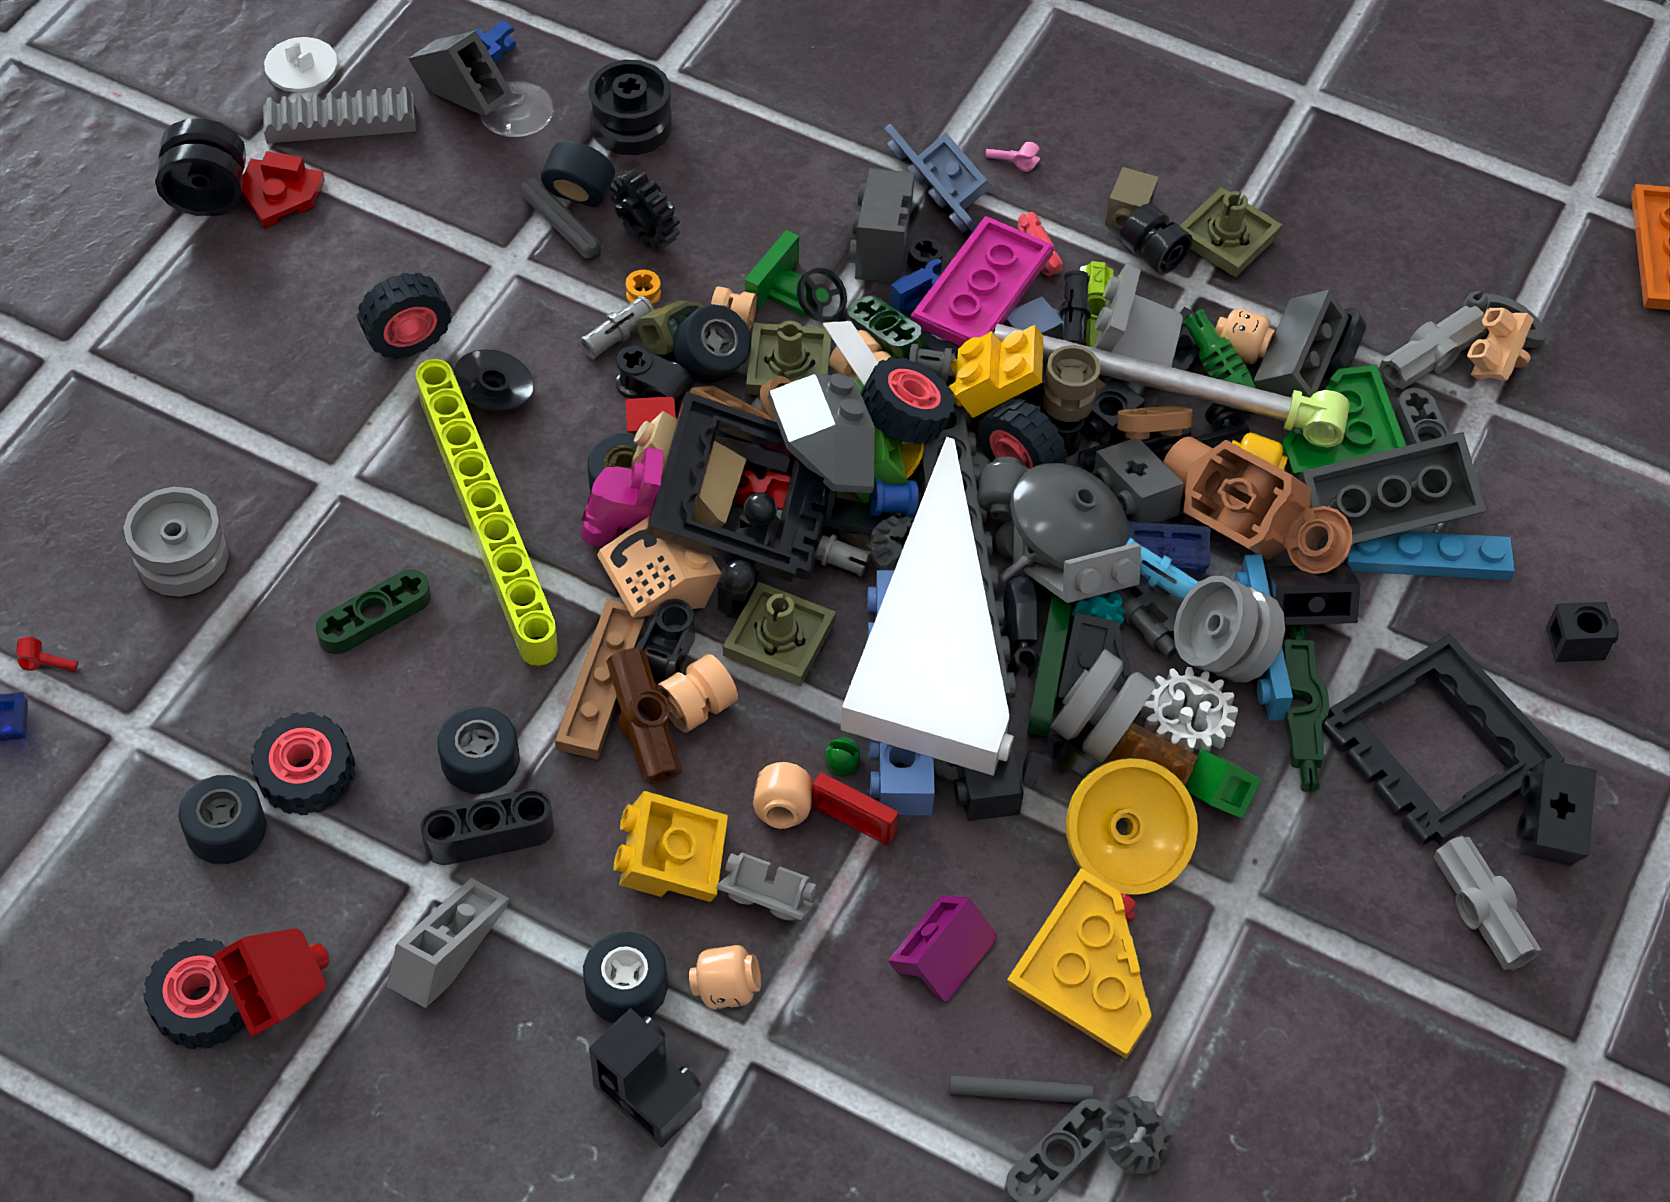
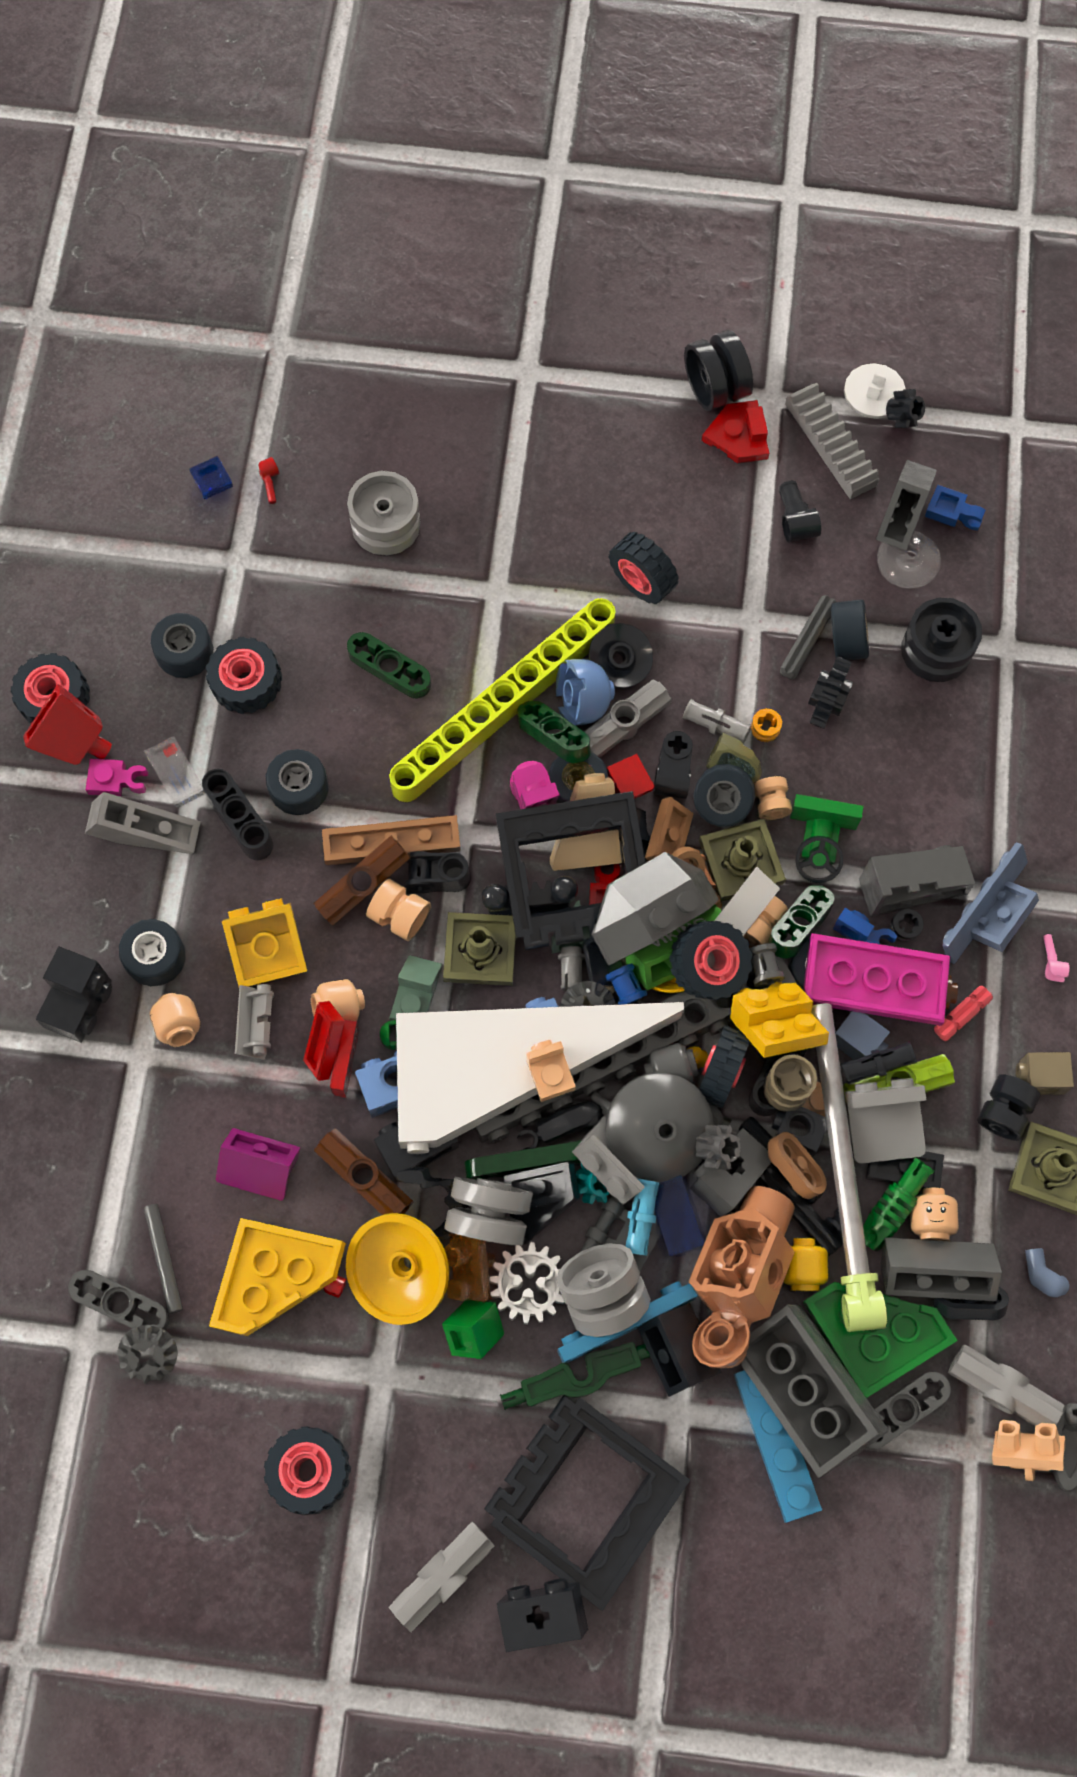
camera: 70 degrees right, 15 degrees up
(345, 40) = (905, 408): none -> black gear
(359, 963) = (112, 777): none -> dark pink plate
(389, 887) = (175, 772): none -> clear tile
(419, 175) = (798, 520): none -> black pin
(521, 426) = (584, 691): none -> medium blue cylinder
(571, 402) = (638, 707): none -> light grey piece
(589, 451) = (558, 742): none -> dark green beam
(656, 570) = (479, 842): light nougat slope -> none
(799, 716) = (416, 986): none -> sand green slope
(830, 812) = (323, 1040): none -> red tile
(976, 575) = (549, 1070): none -> light nougat bracket
(983, 845) = (347, 1160): none -> reddish brown piece
(1116, 465) = (718, 1146): none -> flat silver gear
(1336, 279) = (1042, 1277): none -> sand blue arm
(1343, 978) = (284, 1465): none -> black wheel
(1581, 631) = (731, 1586): black brick -> none

